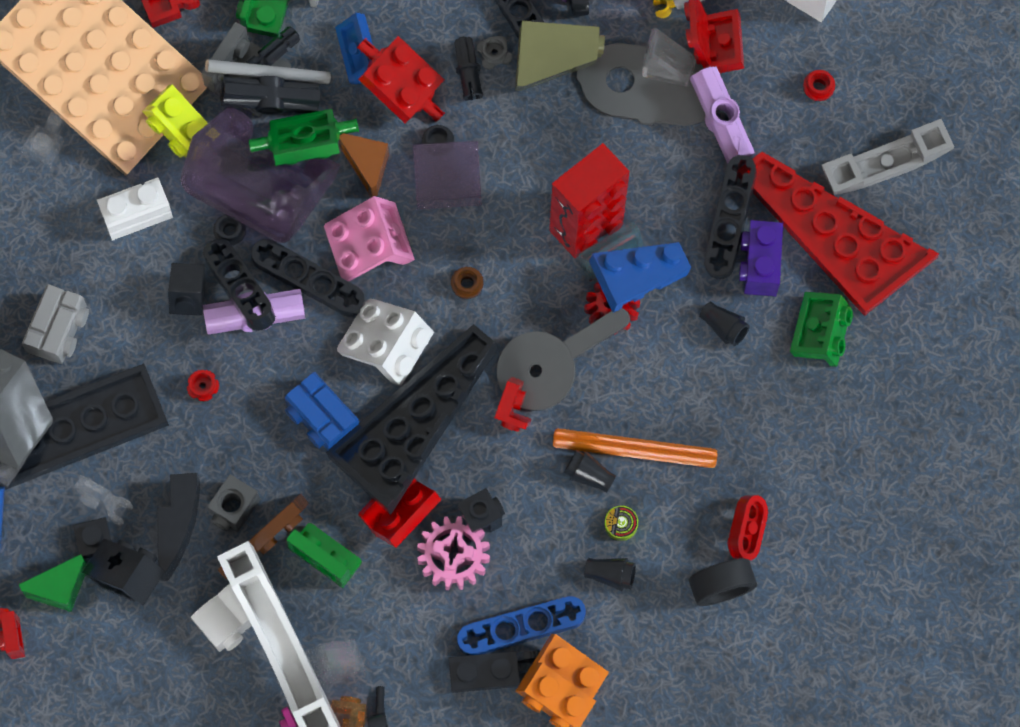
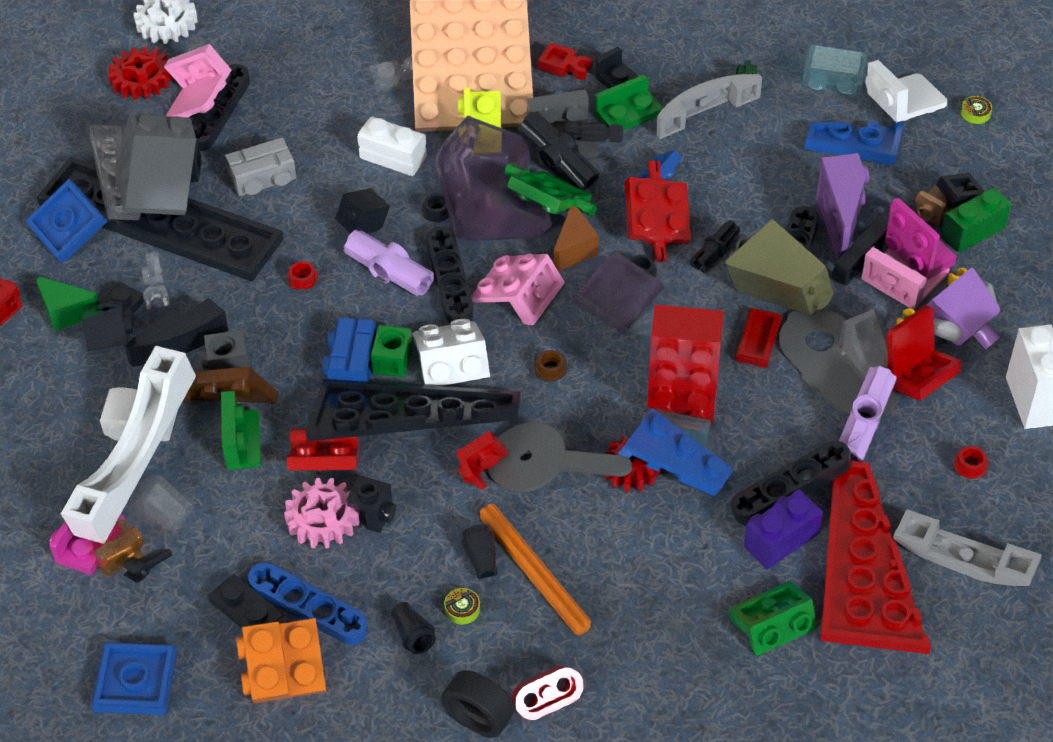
camera: 50 degrees right, 20 degrees down
(238, 284) = (394, 232): black beam -> none
(257, 70) = (564, 126): light grey bar -> none
(352, 393) = (391, 351): none -> green brick
(578, 117) = (758, 337): none -> red tile
(726, 324) = (702, 549): black cone -> none

